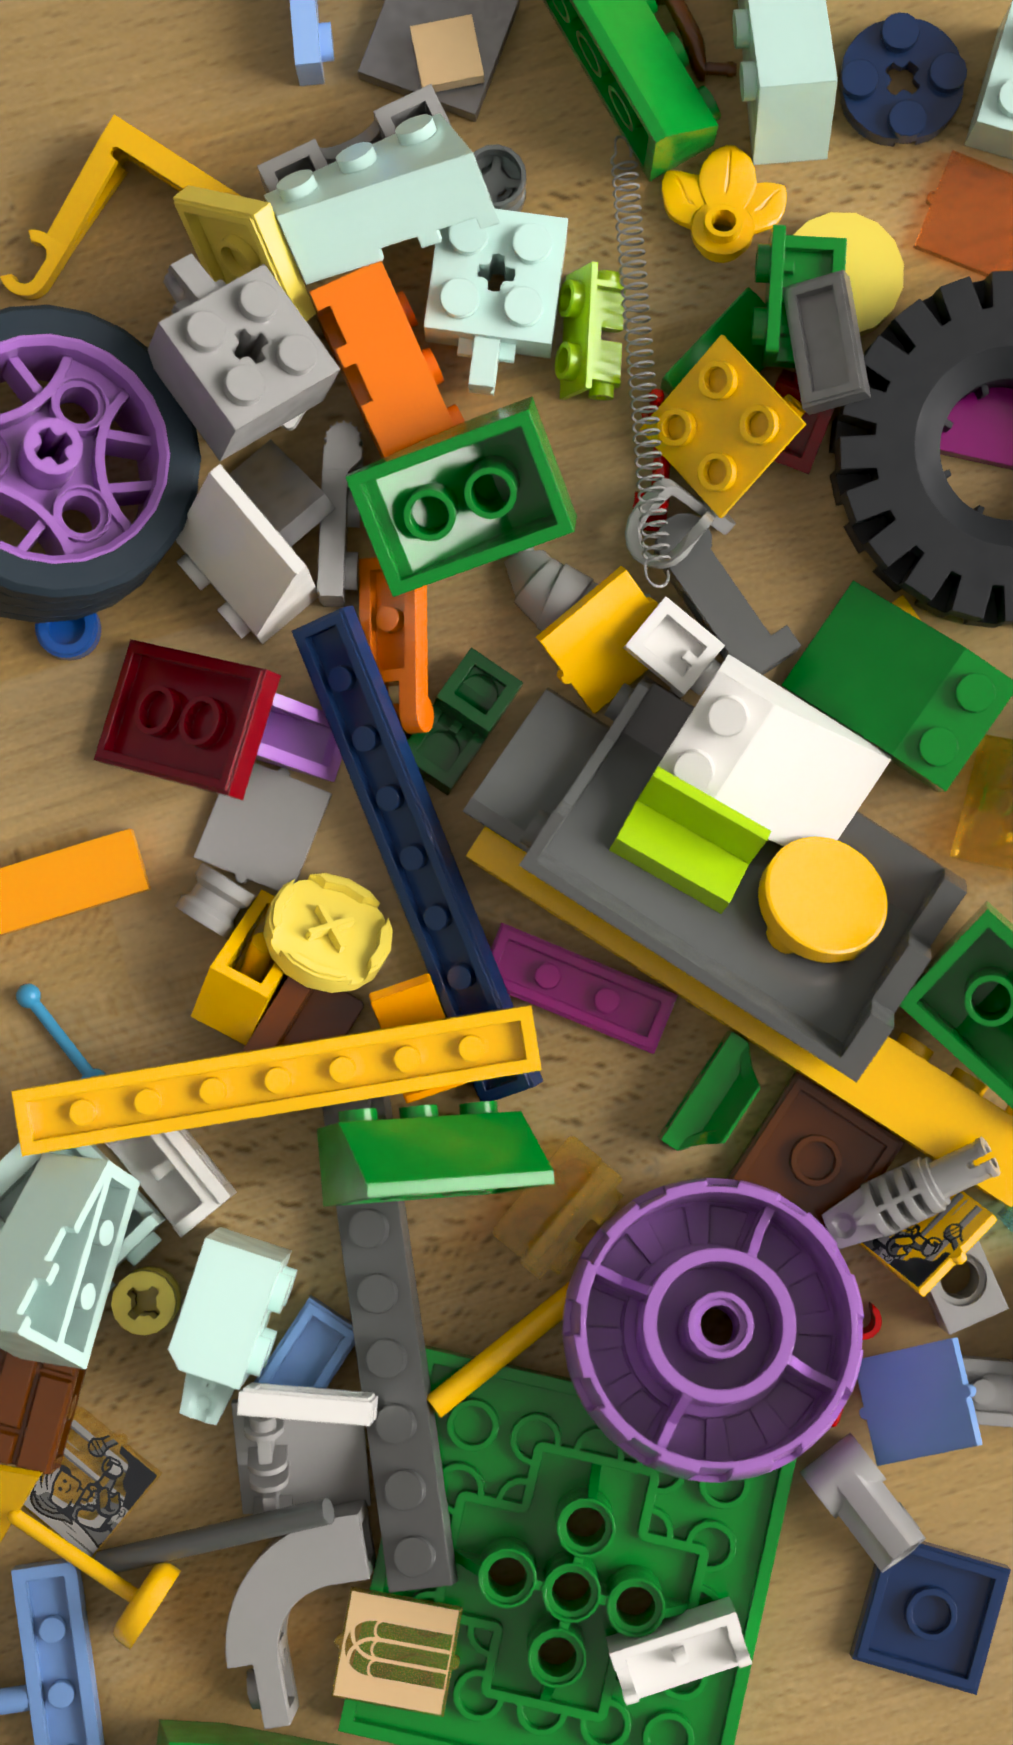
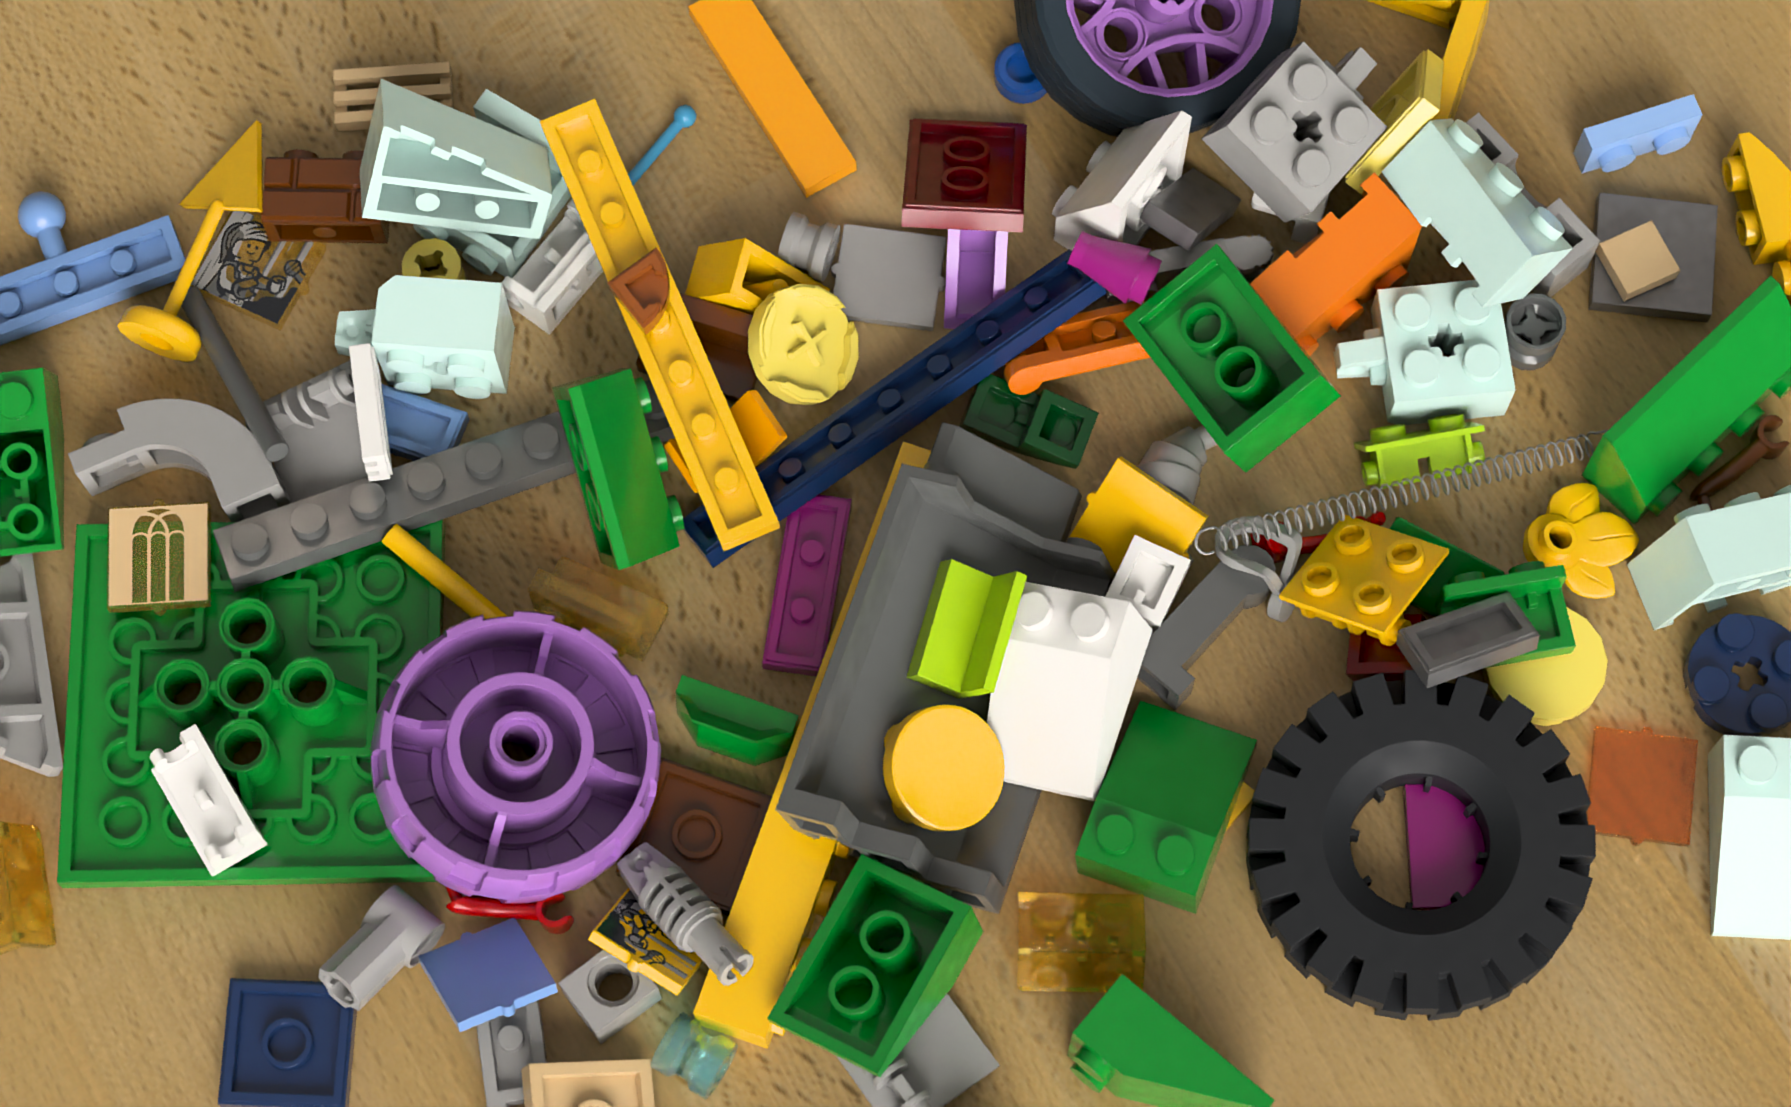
camera: 75 degrees right, 15 degrees down
(247, 1087) = (644, 290): none -> dark orange tile
(339, 587) = (1116, 266): none -> magenta cone

